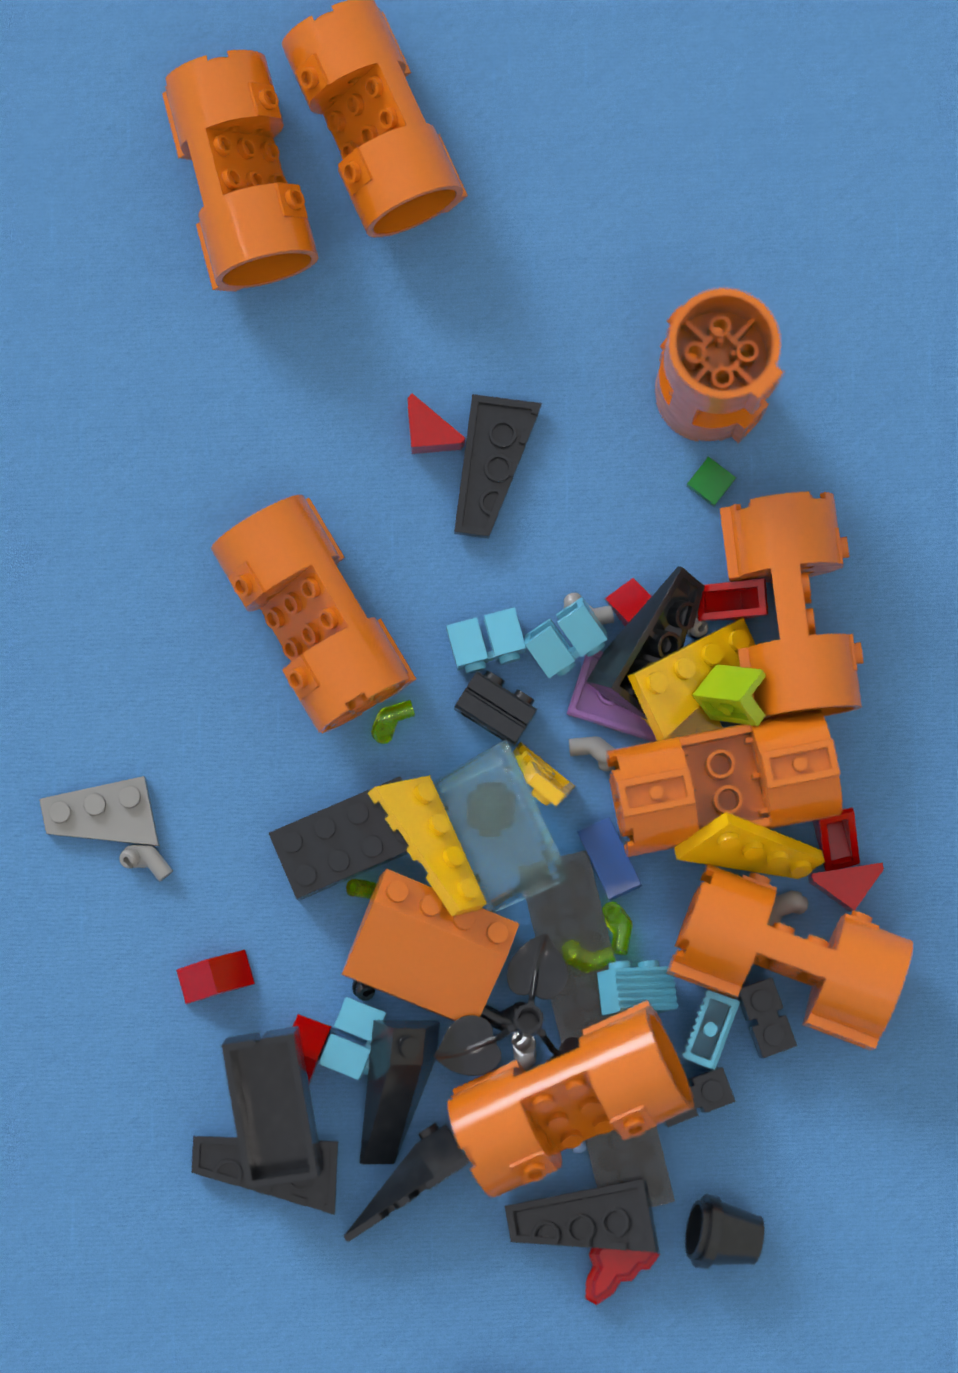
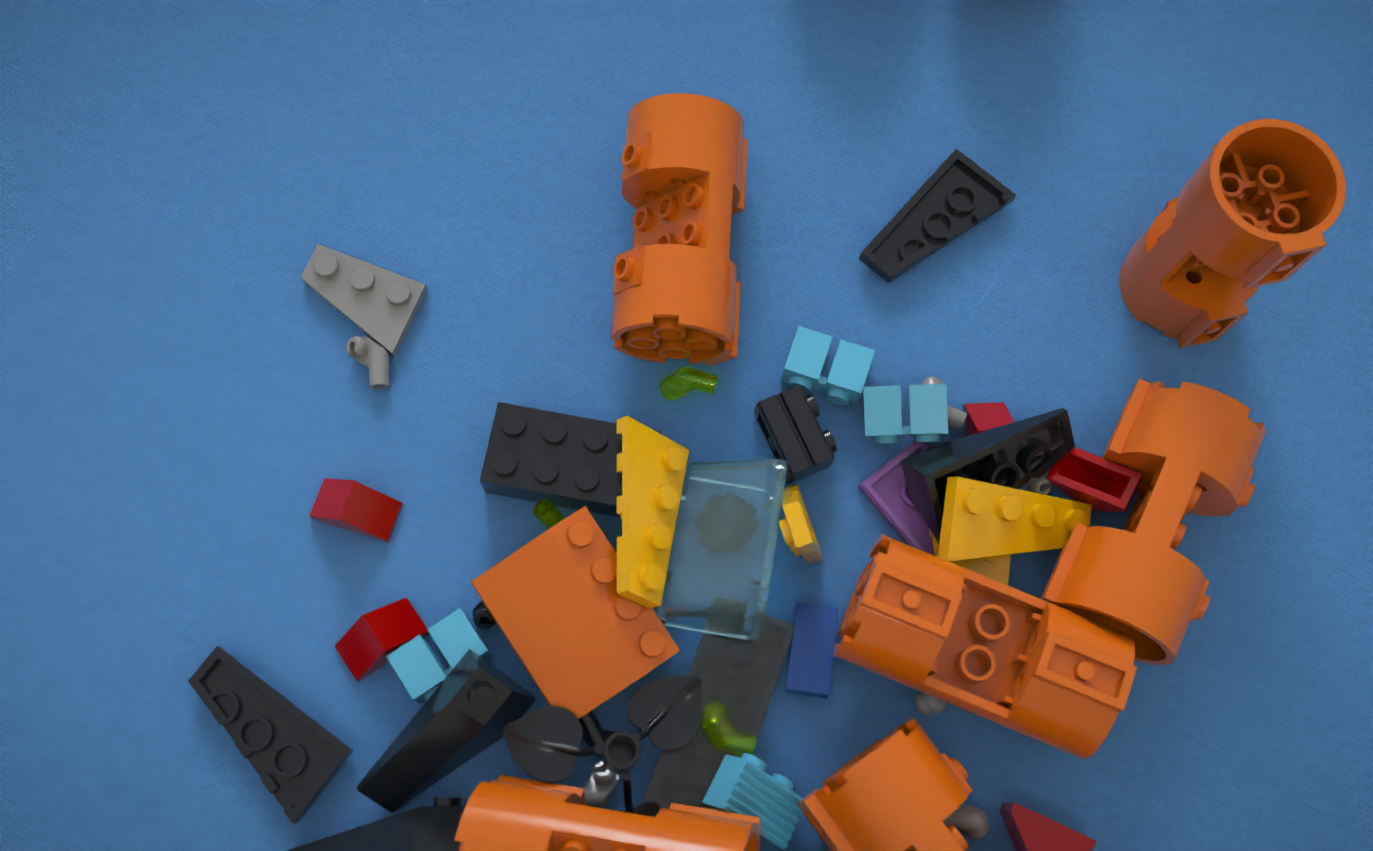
camera: 30 degrees right, 10 degrees down
(272, 1107) = (302, 667): black piece -> none
(430, 431) = (896, 157): red slope -> none
(591, 746) = (863, 530): light grey arm -> none
(620, 926) = (779, 724): clear neon green arm -> none
(711, 481) = (1133, 363): green tile -> none
(728, 692) = (1042, 563): lime panel -> none
(749, 847) = (967, 727): yellow wing -> none
(838, 840) = (1060, 783): red slope -> none

